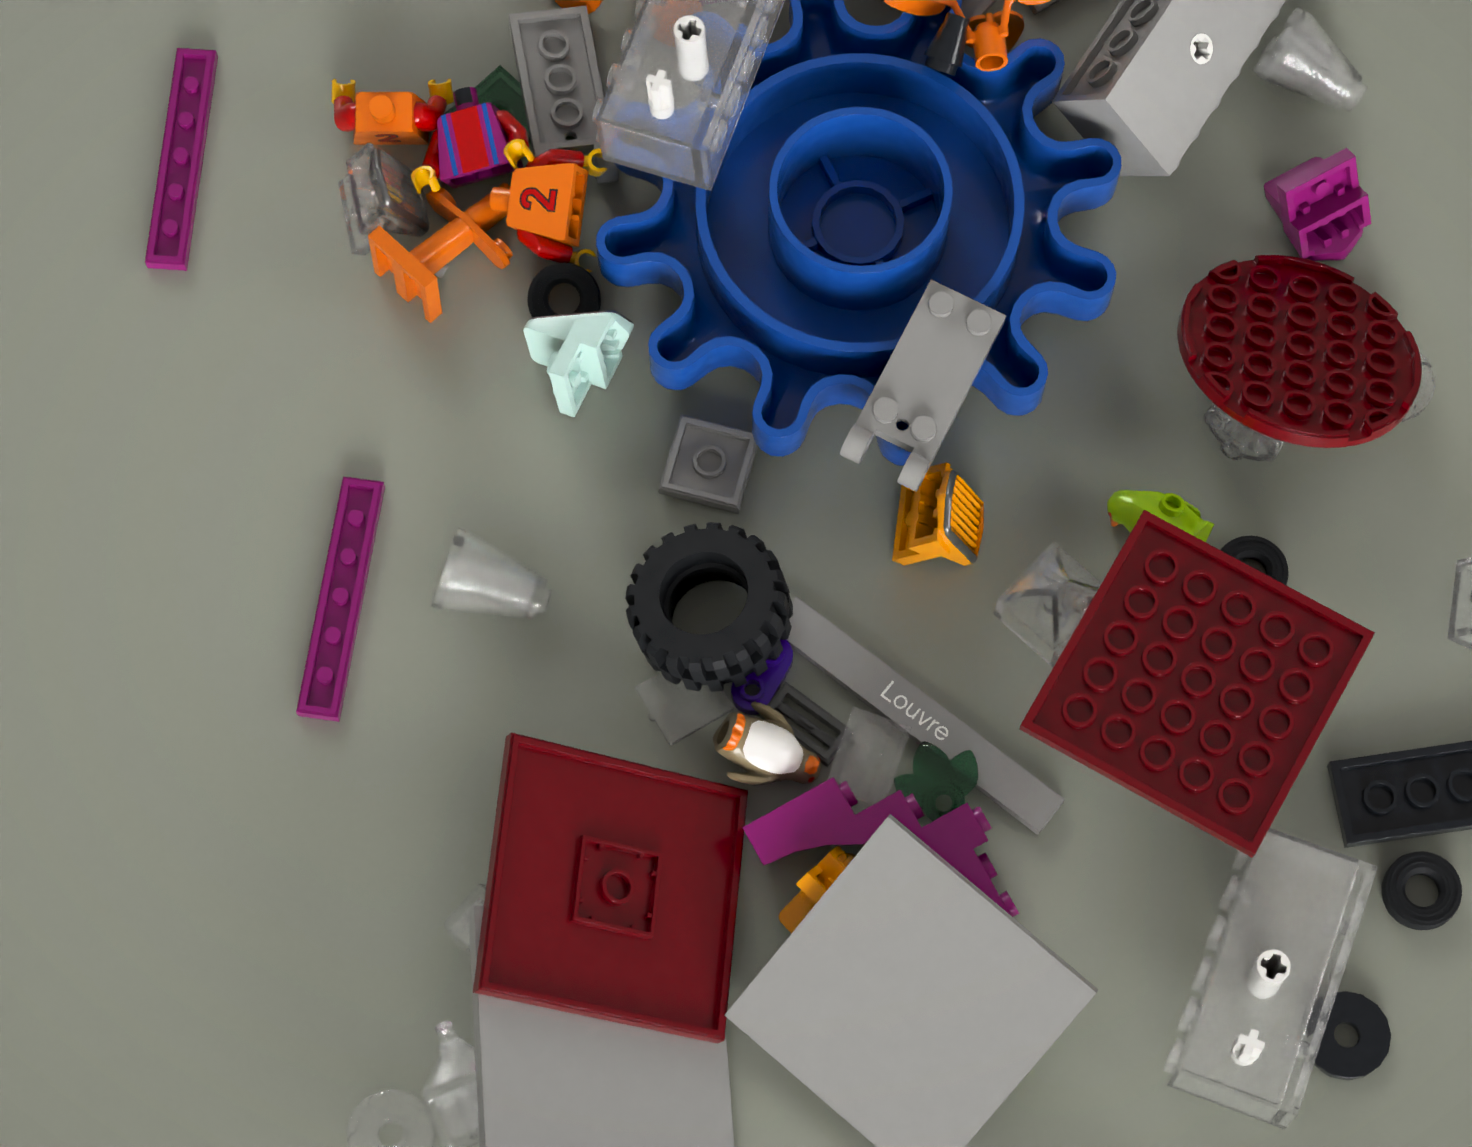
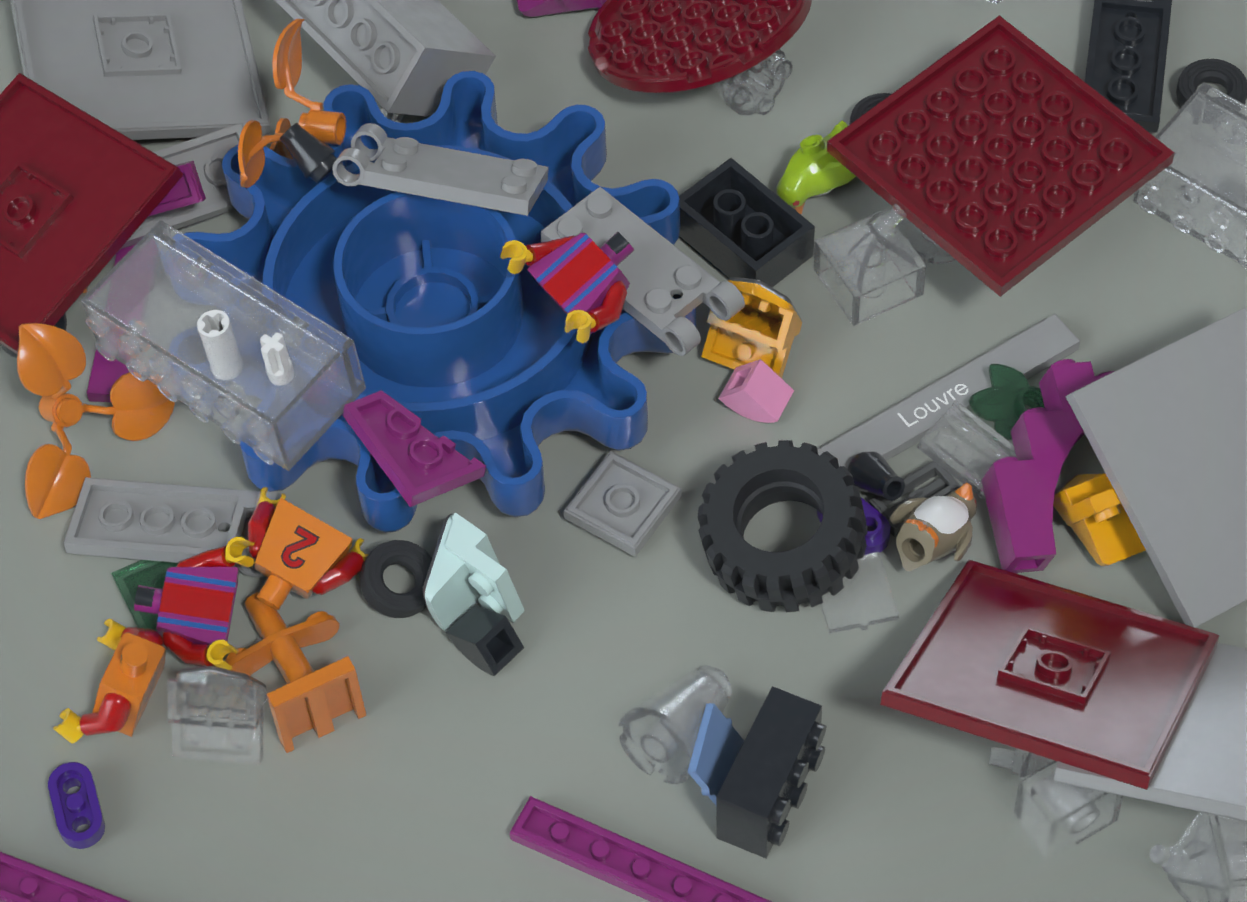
camera: 70 degrees left, 15 degrees down
(266, 125) = (76, 808): none -> dark purple plate
(448, 671) = (770, 773): none -> black brick
(457, 622) = (714, 751): none -> medium blue piece
(525, 393) = (485, 639): none -> black brick
(648, 249) = (407, 452): none -> magenta wing
(807, 676) = (875, 476): none -> black cone
(872, 545) = (756, 392): none -> bright pink brick
(874, 331) = (577, 277): none -> torso
(965, 171) = (442, 172): none -> light grey hinge
(1055, 472) = (744, 226): none -> black brick

